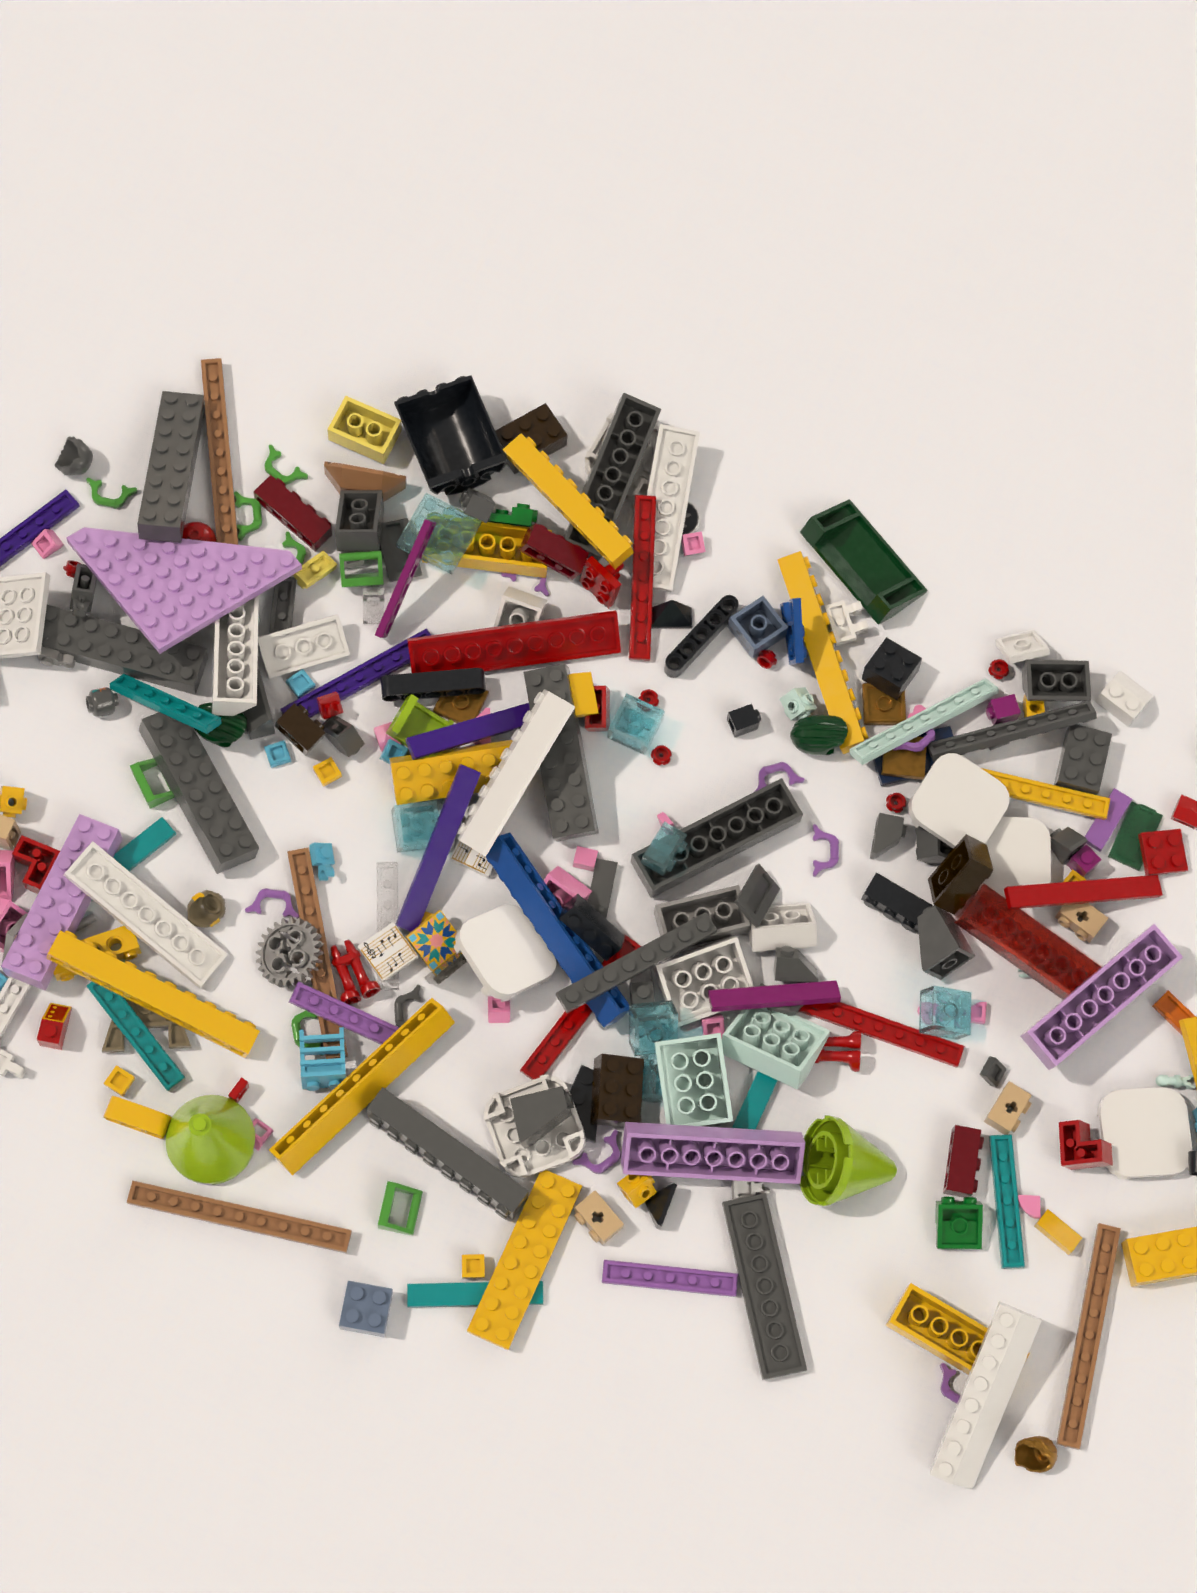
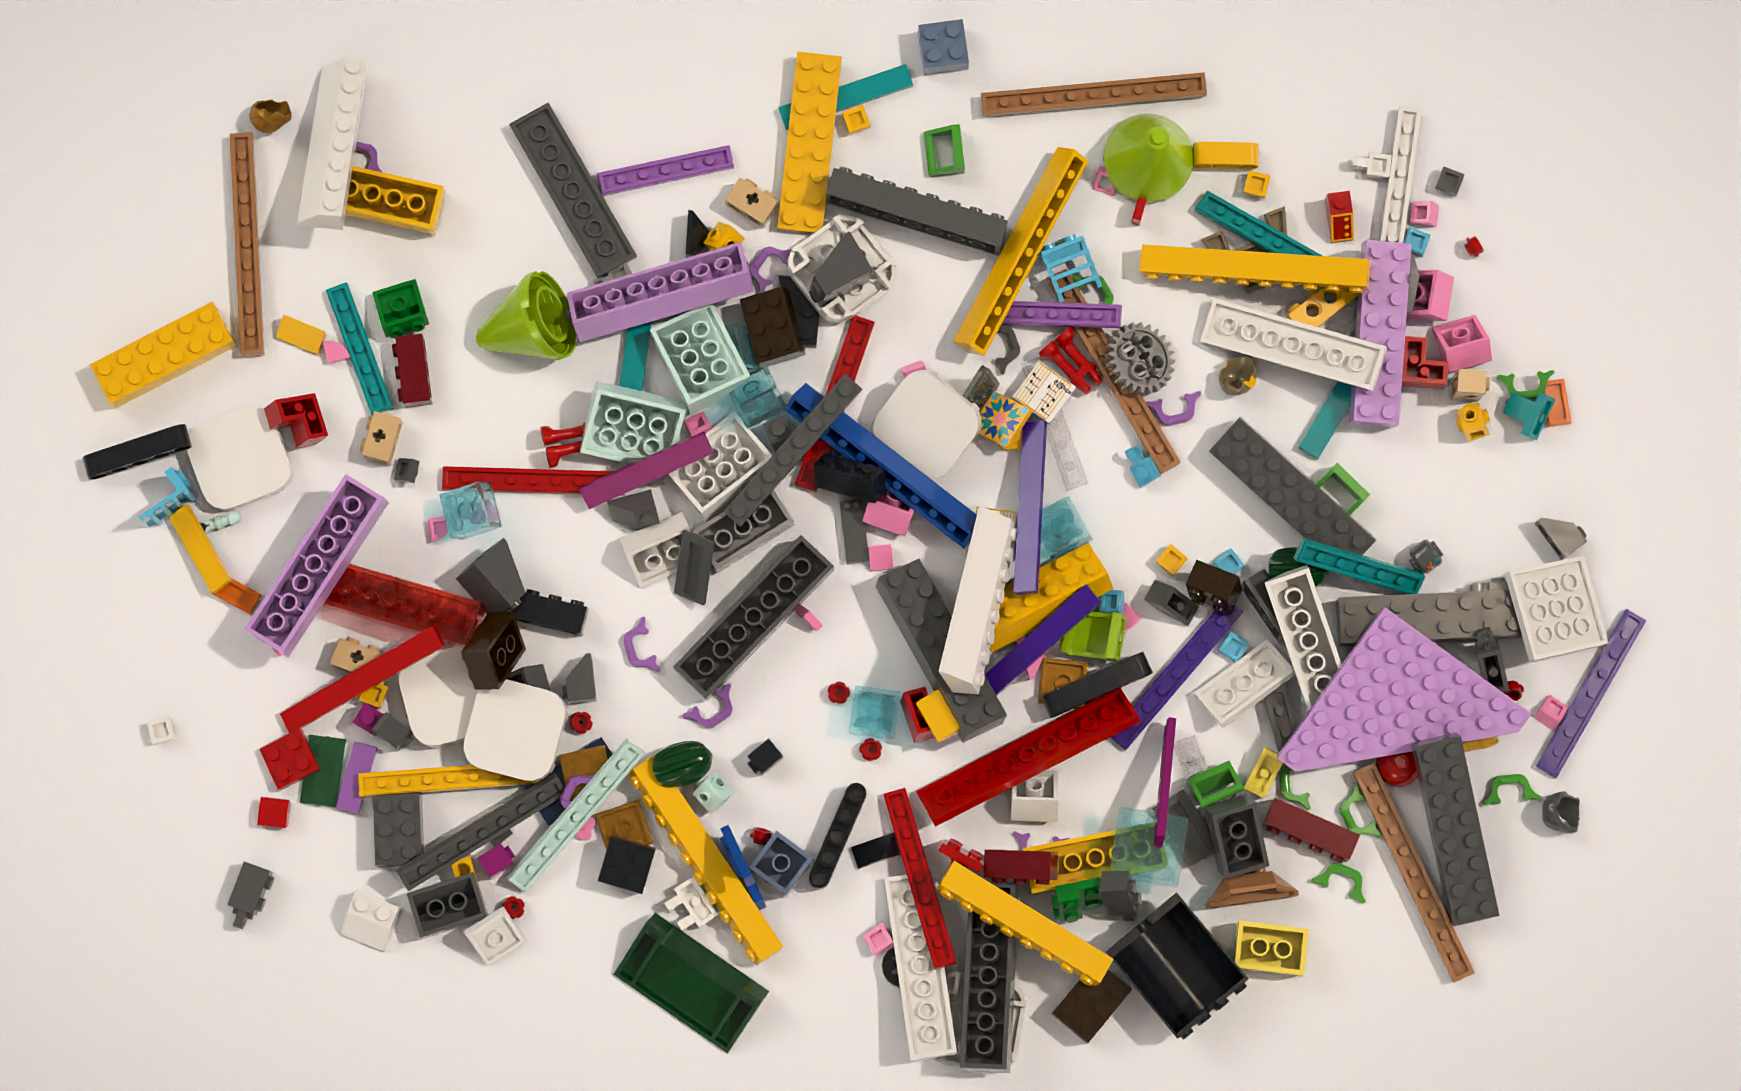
camera: 170 degrees right, 10 degrees up
(329, 705) = (1194, 629): red tile -> none
(664, 849) = (802, 576): clear light blue brick -> none

